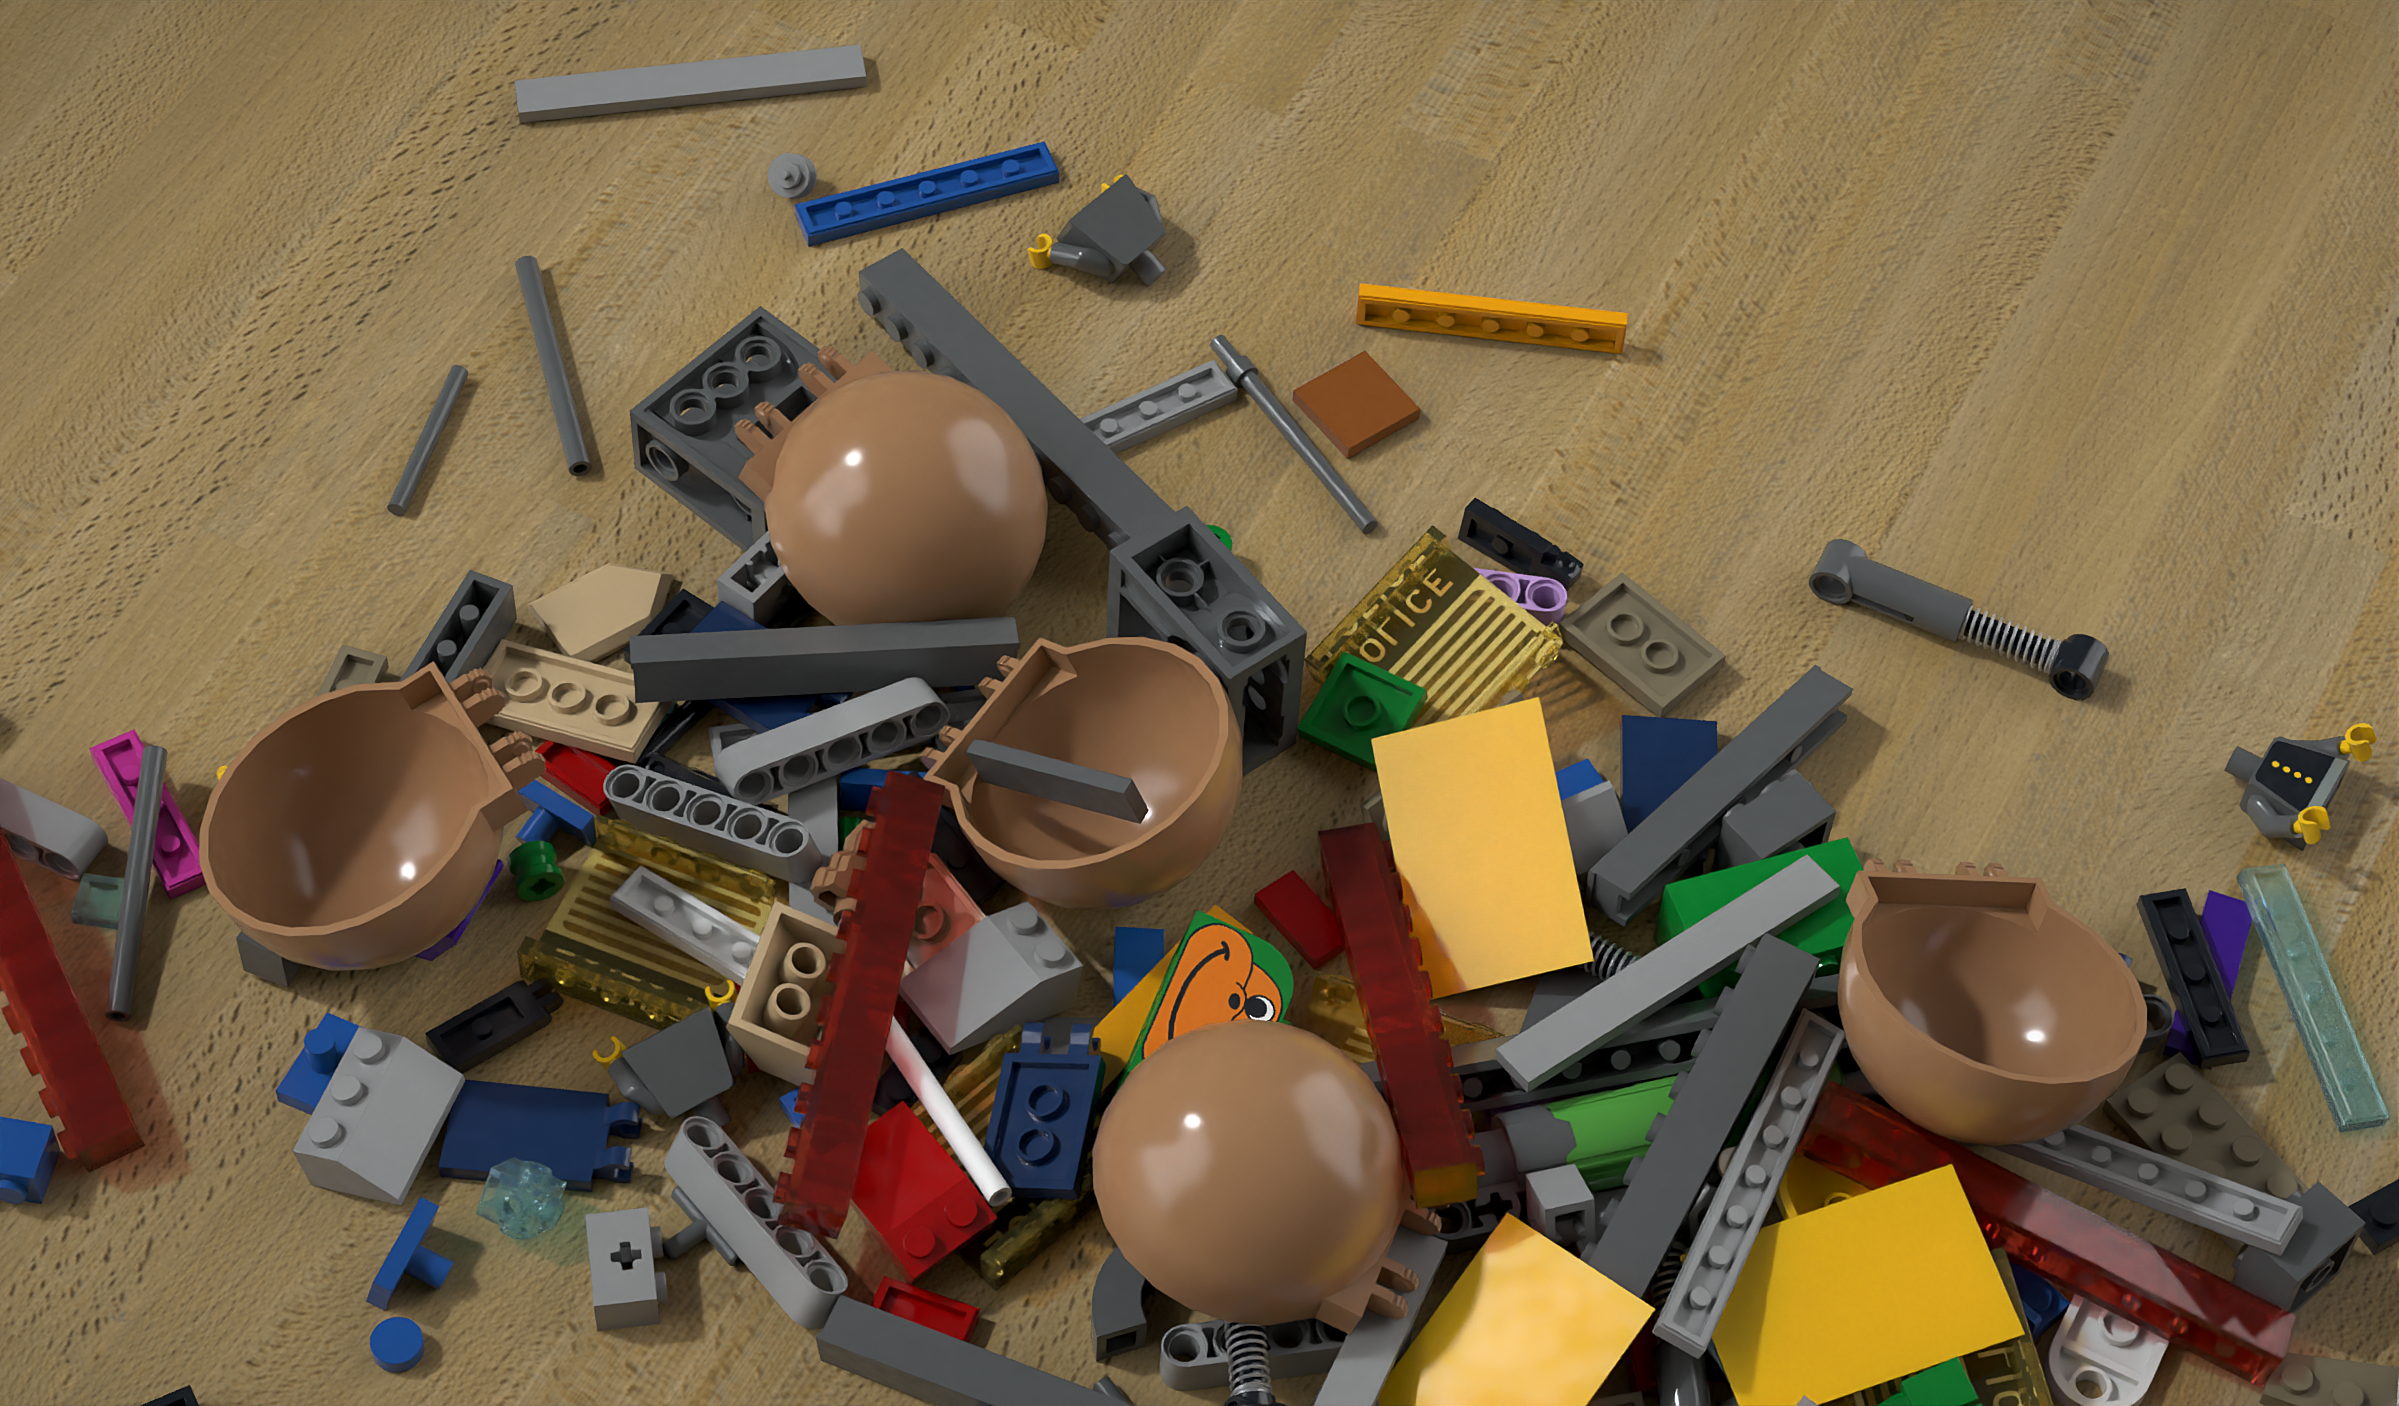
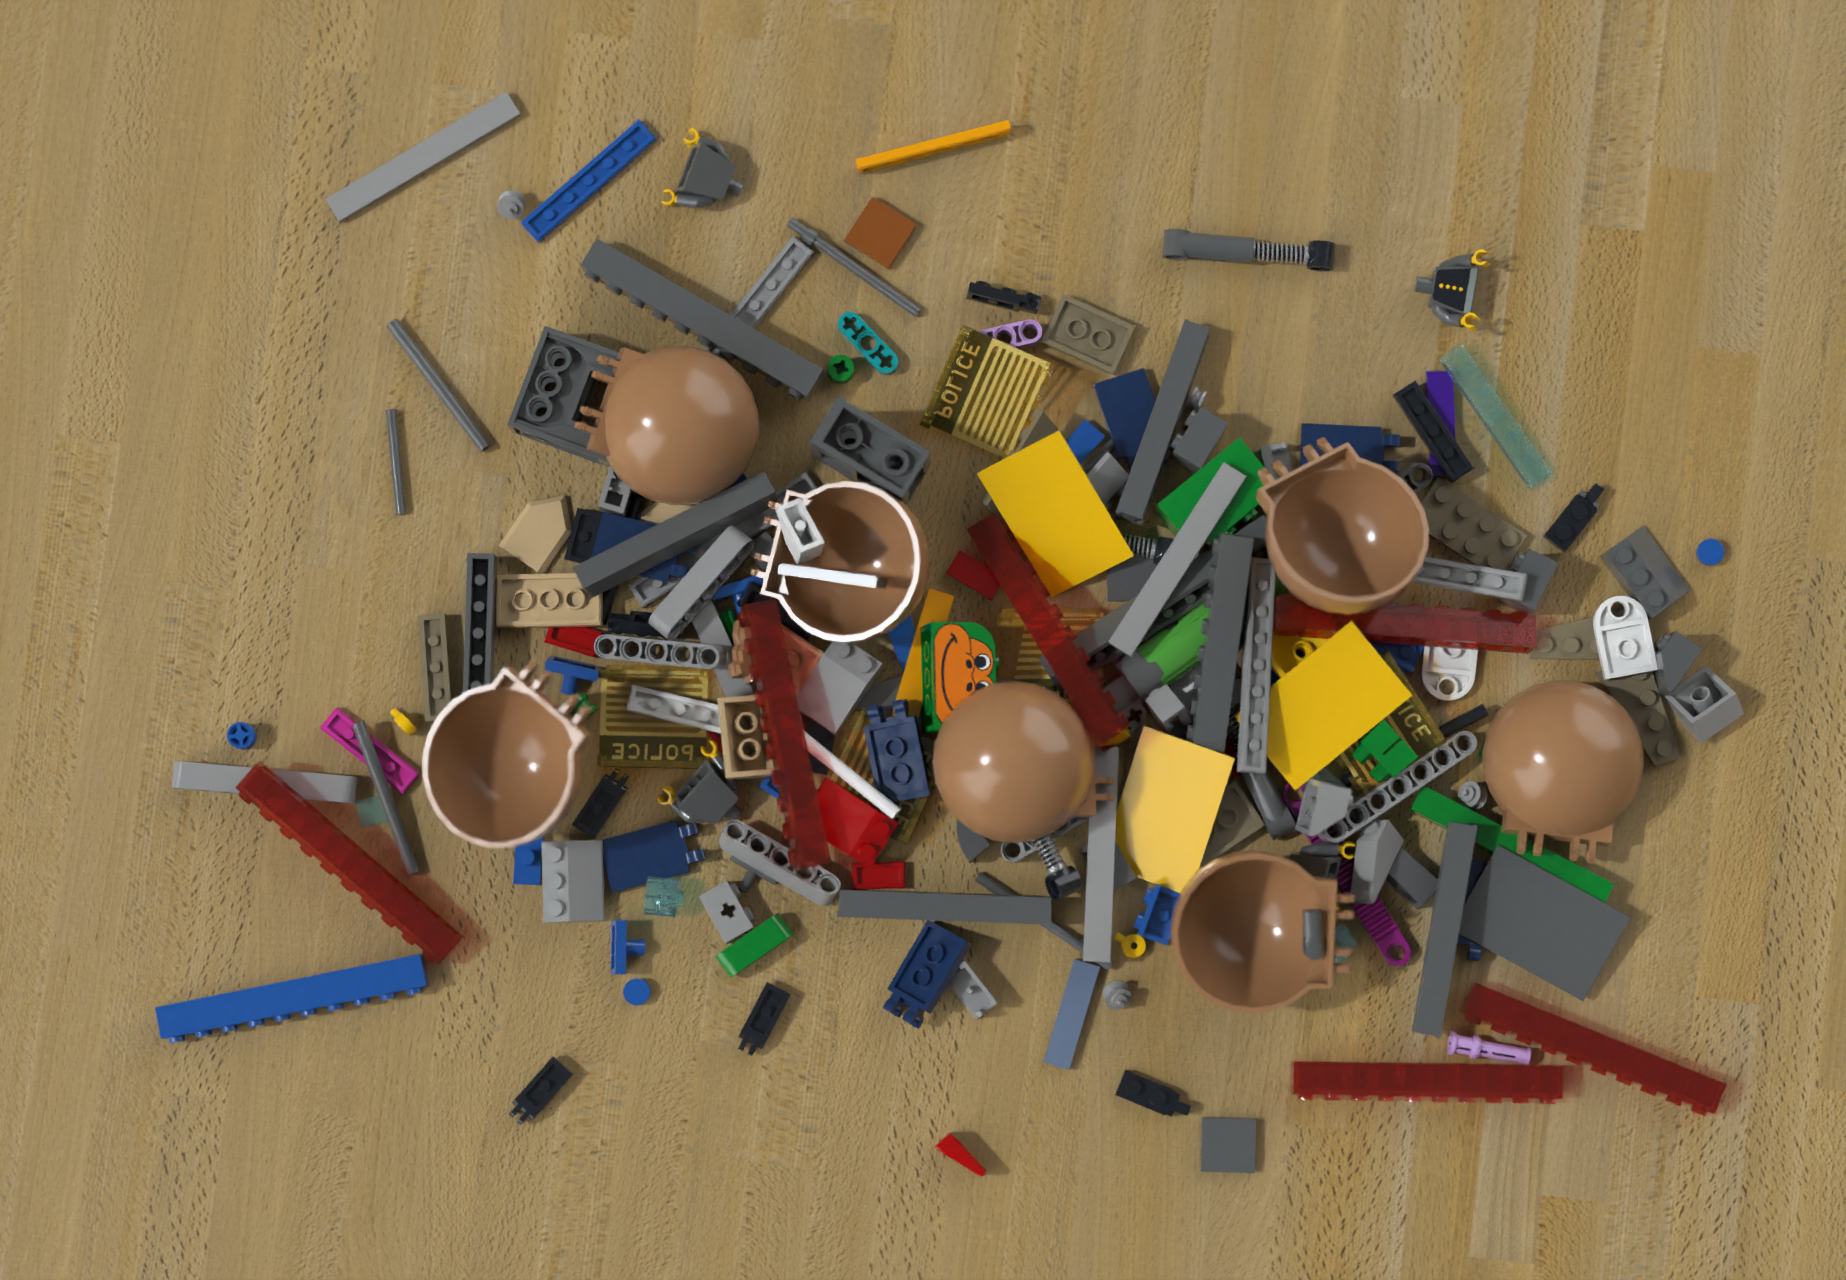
camera: 20 degrees left, 30 degrees up
(644, 1341) = (754, 945): none -> green beam
(1033, 700) = (799, 531): none -> white slope
(1268, 557) = (876, 362): none -> teal beam
(1360, 705) = (960, 441): green plate -> none

